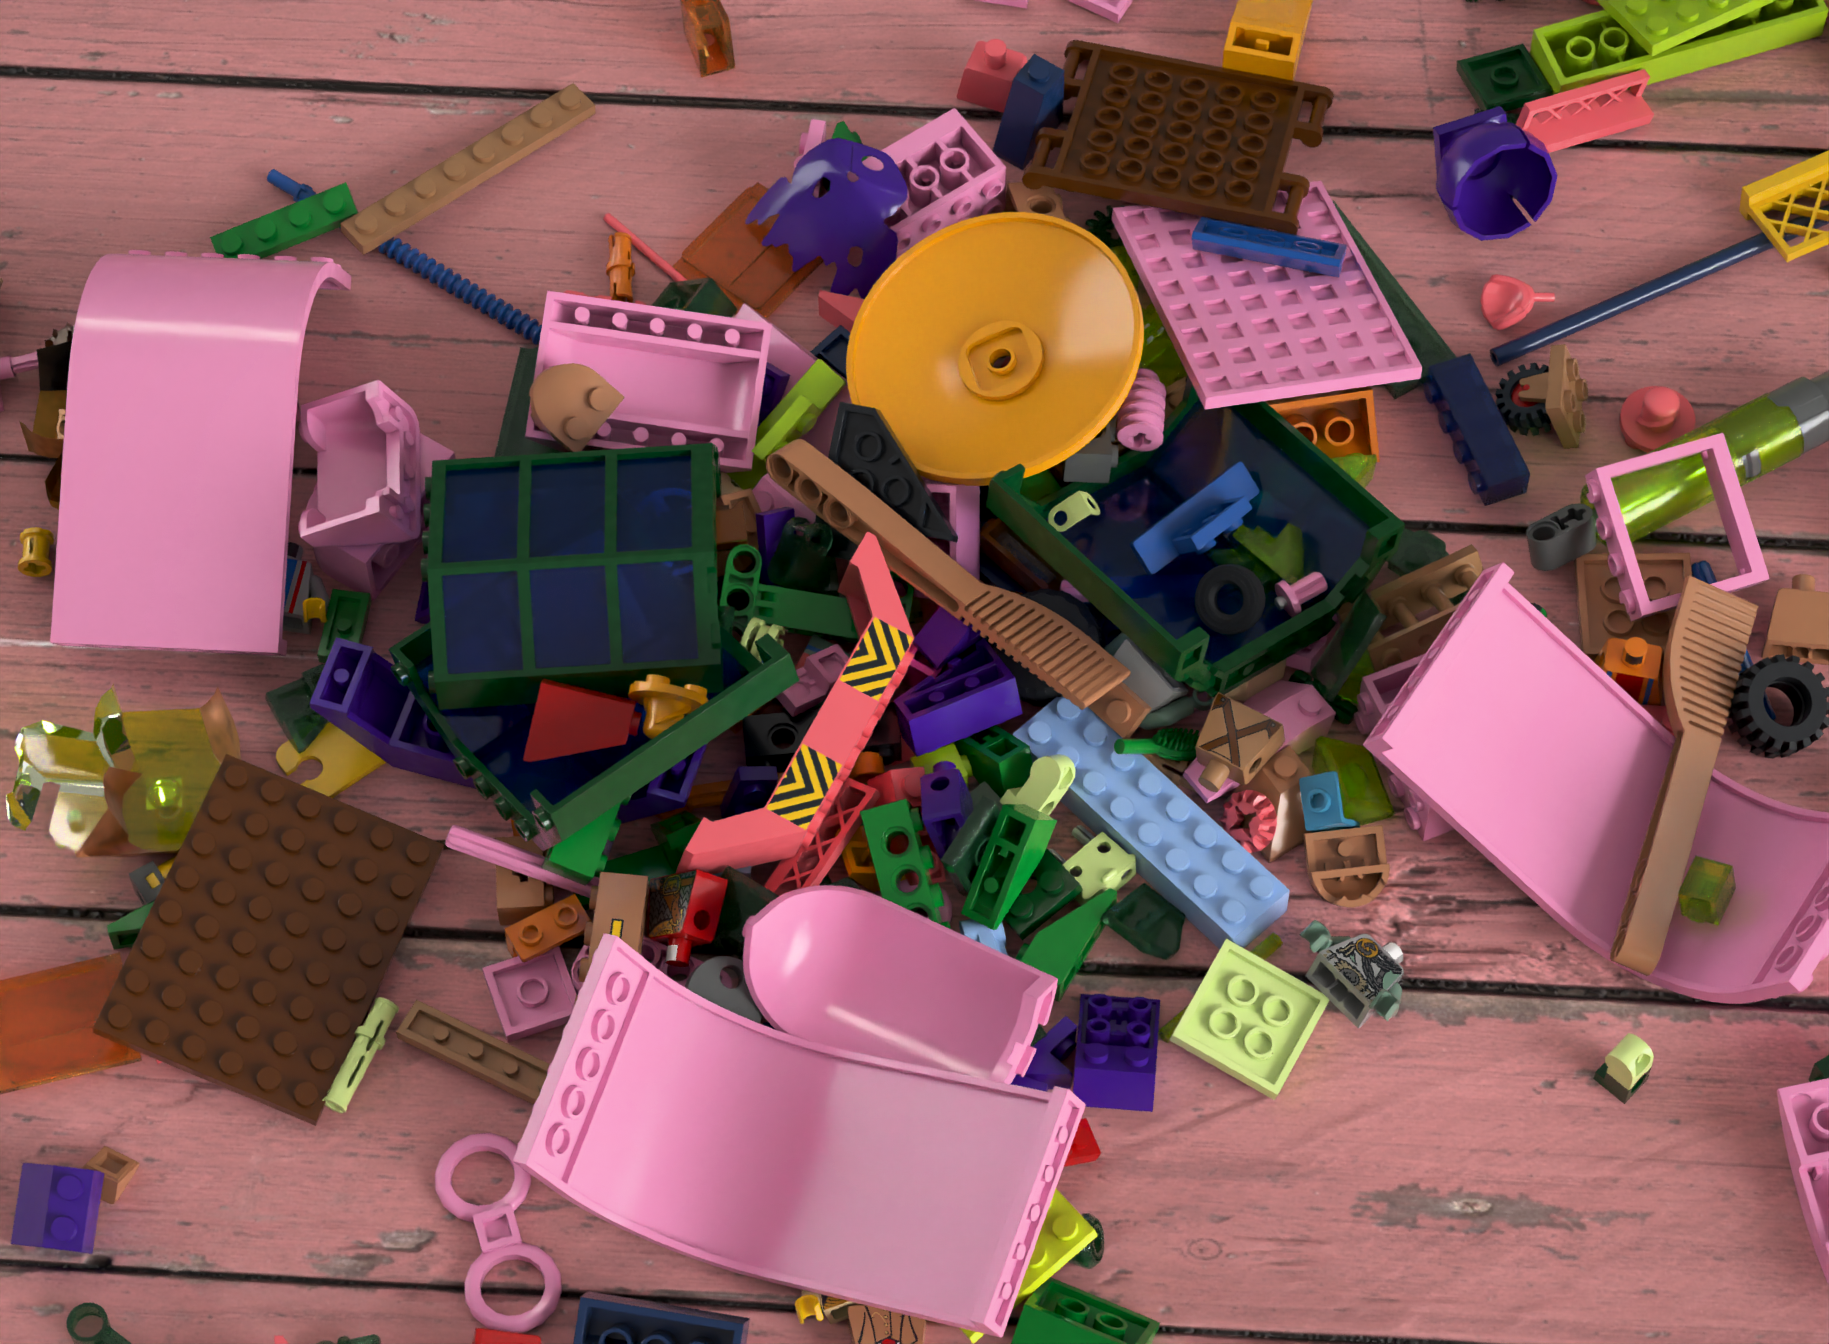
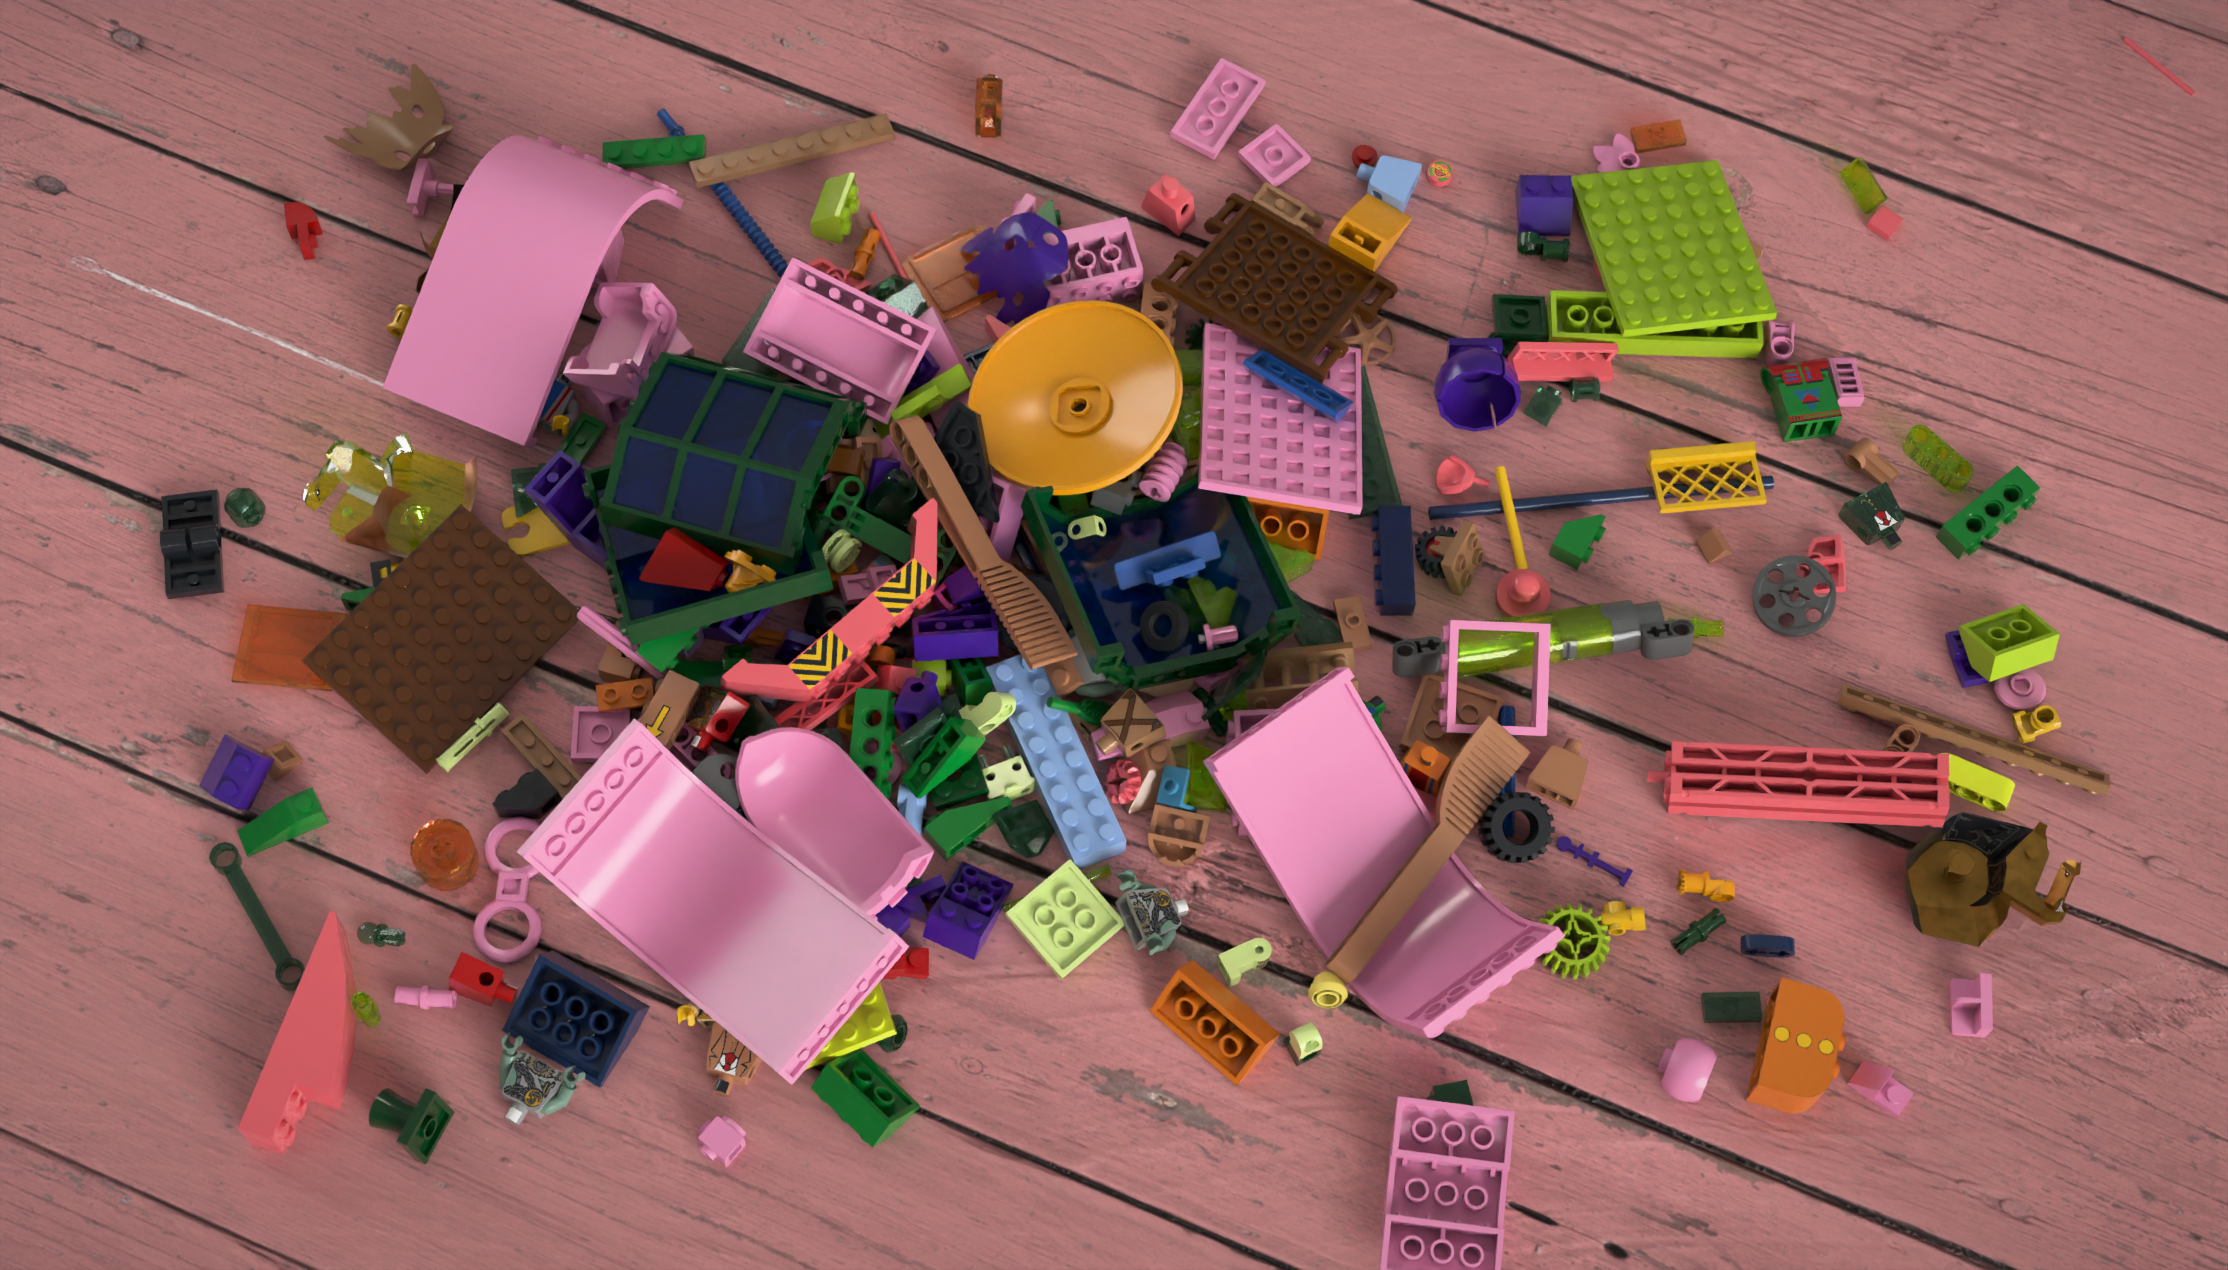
camera: 15 degrees right, 5 degrees up
(150, 1251) = (283, 822): none -> green slope
(390, 1217) = (444, 854): none -> clear orange wheel
(473, 1106) = (529, 798): none -> black slope
(560, 221) = (835, 208): none -> lime slope
(572, 403) = (779, 340): nougat slope -> none
(1032, 104) = (1184, 231): dark blue slope -> none
(1149, 37) = (1287, 208): none -> medium nougat hinge
(1322, 168) = (1367, 338): none -> nougat wheel
(1454, 523) = (1352, 622): none -> nougat plate
(1497, 1083) = (1214, 1022): none -> orange slope
(1506, 983) = (1243, 958): none -> yellowish green leg
(1582, 176) = (1544, 405): none -> clear green bracket
(1601, 328) = (1511, 519): none -> yellow bar
(1624, 141) = (1584, 389): none -> clear green bush
(1626, 992) = (1327, 990): none -> light yellow cone
(1694, 329) = (1575, 540): none -> green slope
(1706, 890) = (1411, 939): clear neon green brick -> none

